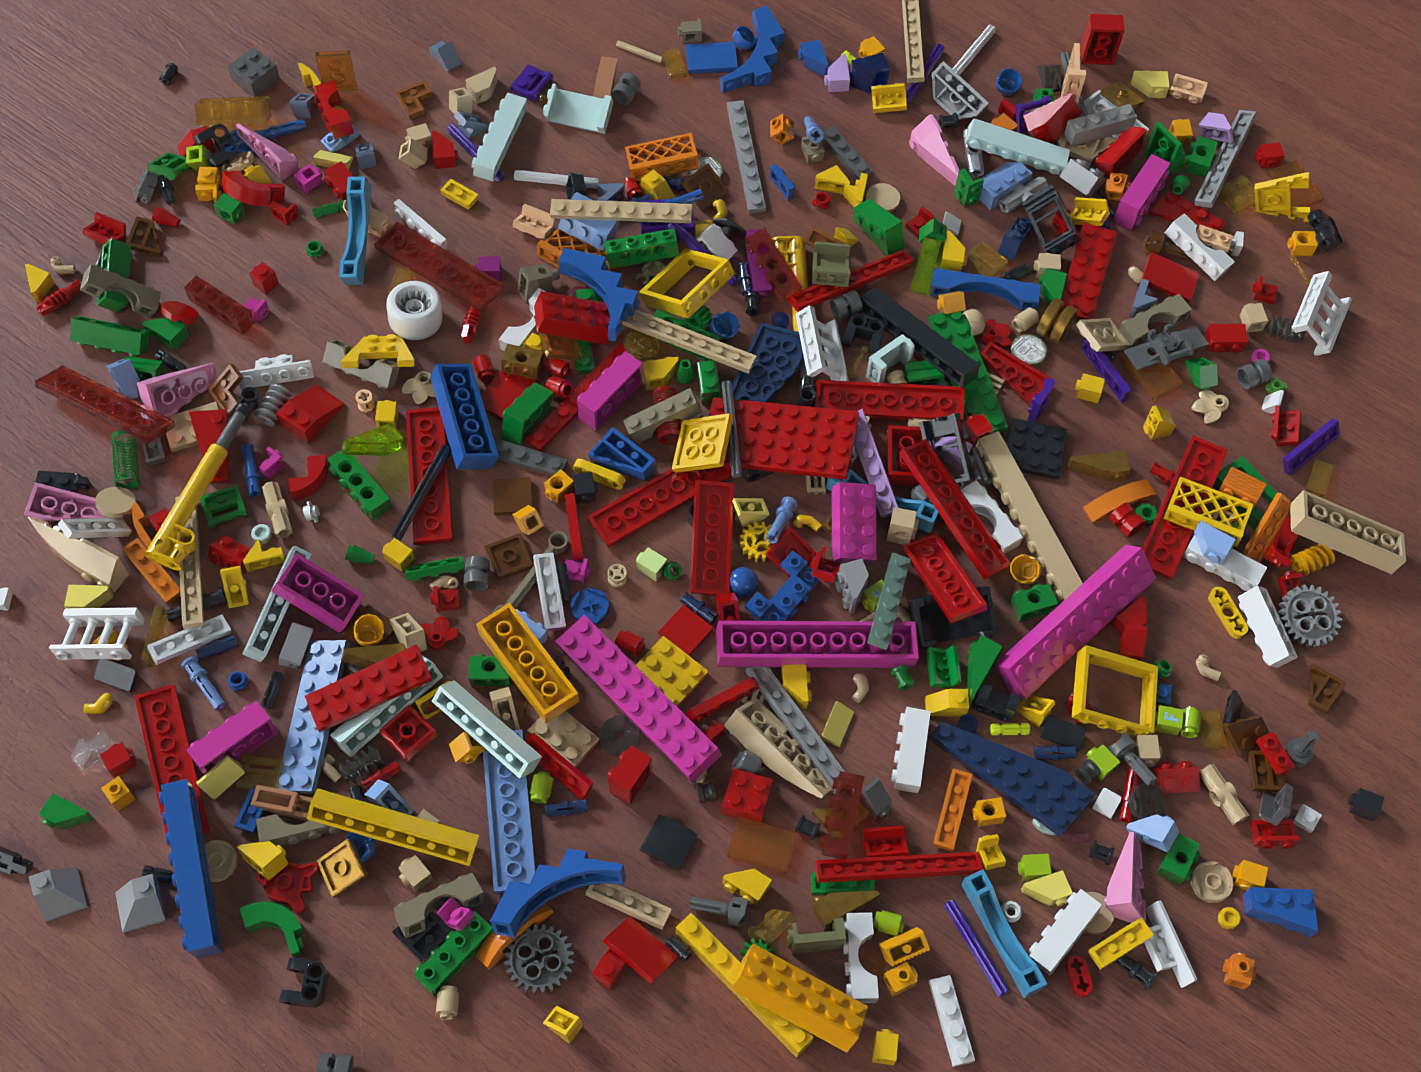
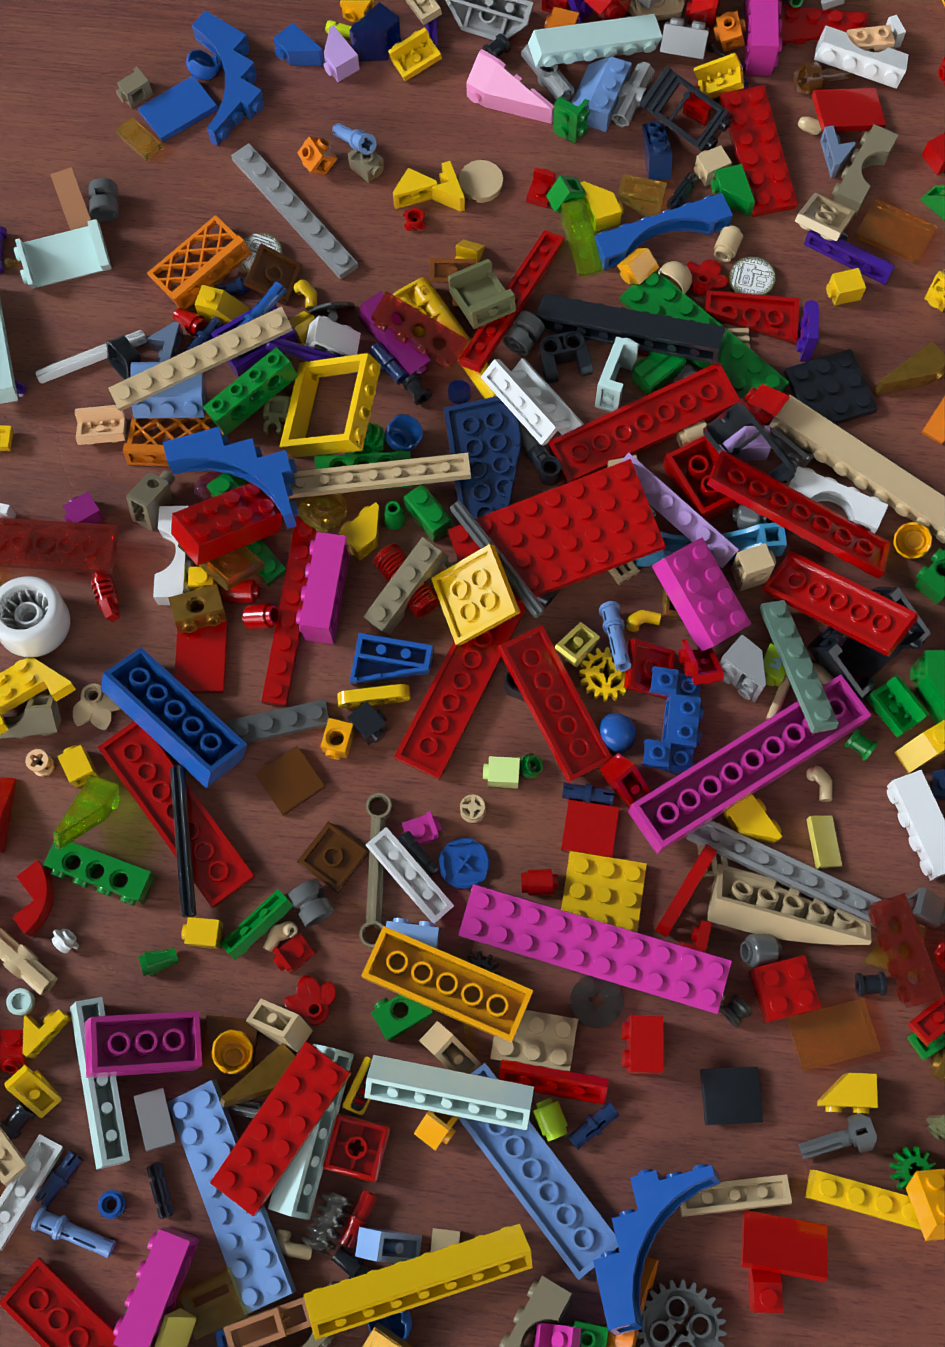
camera: 25 degrees left, 10 degrees up
(414, 873) = (473, 1315): tan brick -> none
(484, 368) = (156, 641): red brick -> none
(524, 412) = (242, 670): green wedge -> none
(528, 520) = (329, 801): light orange brick -> none
(573, 526) = (385, 777): red beam -> none
(638, 51) = (88, 144): tan bar -> none
(679, 948) = (822, 1214): black pin -> none
(772, 926) = (912, 1119): clear yellow plate -> none
(782, 182) = (357, 221): blue plate -> none
(846, 153) = (408, 148): dark grey plate -> none
(851, 372) = (574, 375): clear yellow hinge -> none
(880, 226) = (502, 217): green wedge -> none
(896, 377) = (634, 391): tan wheel -> none
(952, 223) = (575, 169): white slope -> none
(1057, 321) = (767, 227): pearl gold wheel -> none
(1182, 342) = (910, 177): dark grey piece -> none

